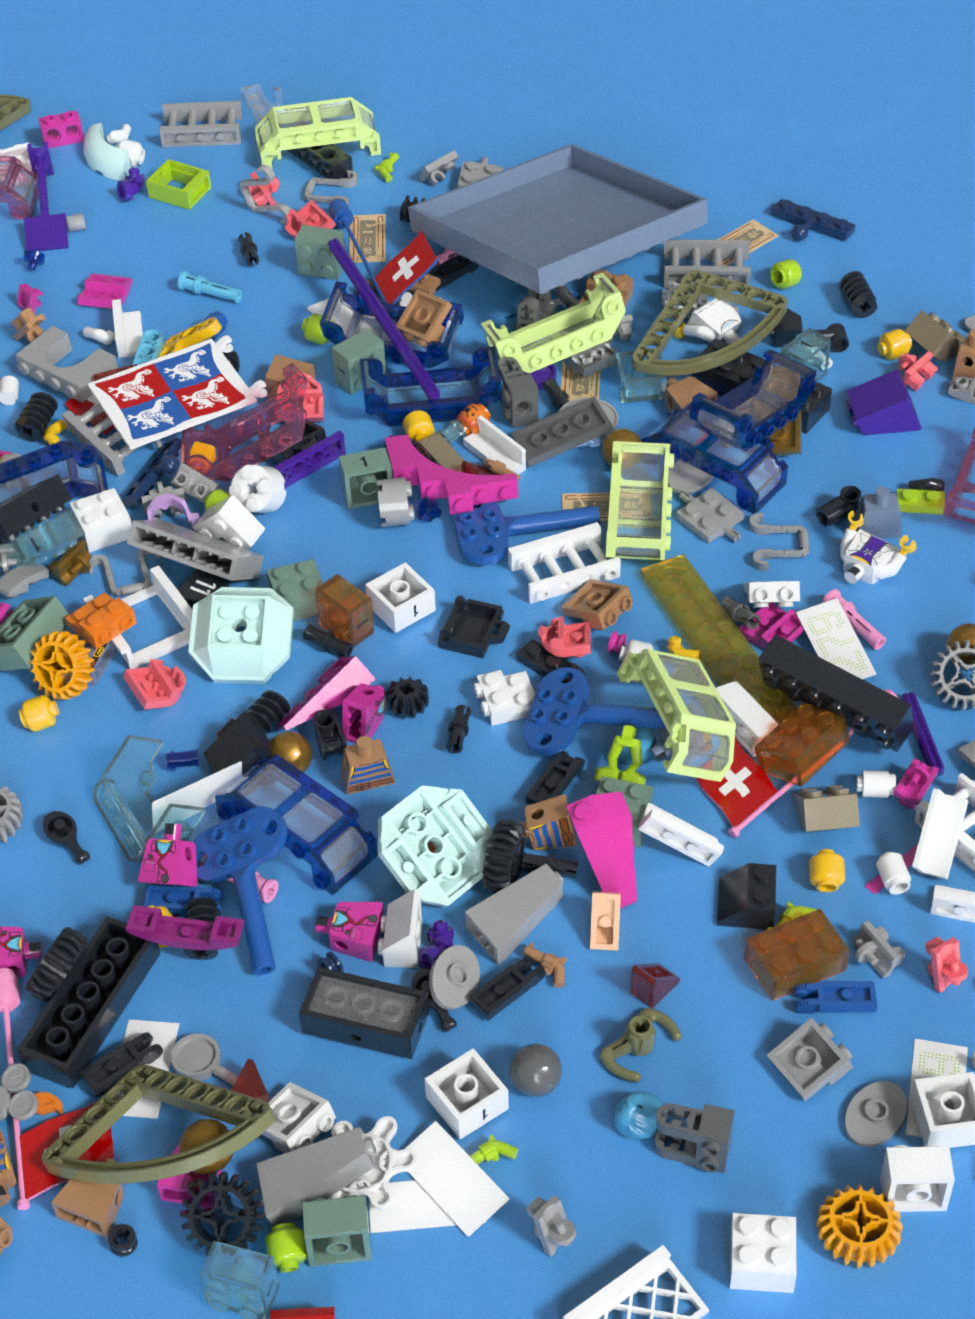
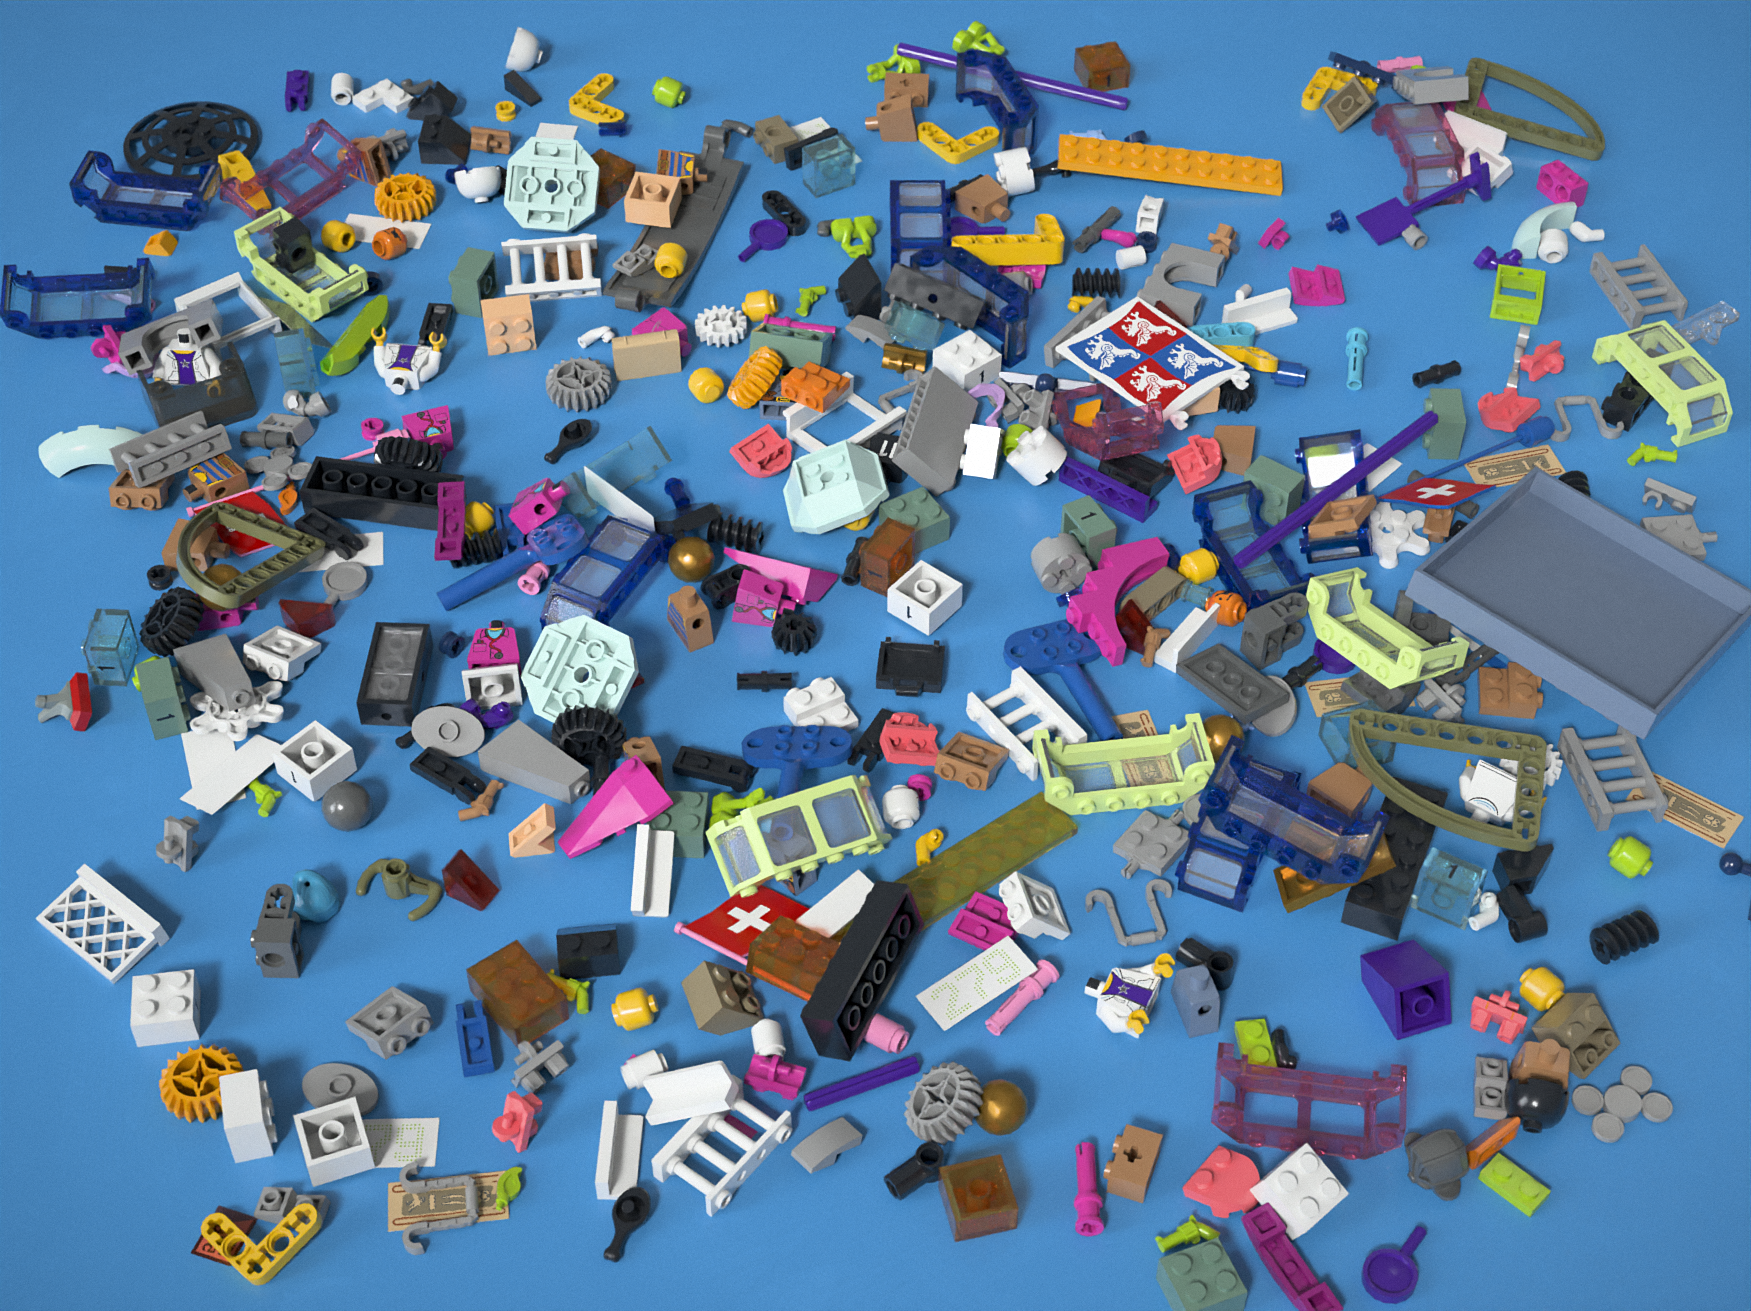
camera: 75 degrees right, 0 degrees up
(740, 612) = (983, 889): dark grey pin -> none

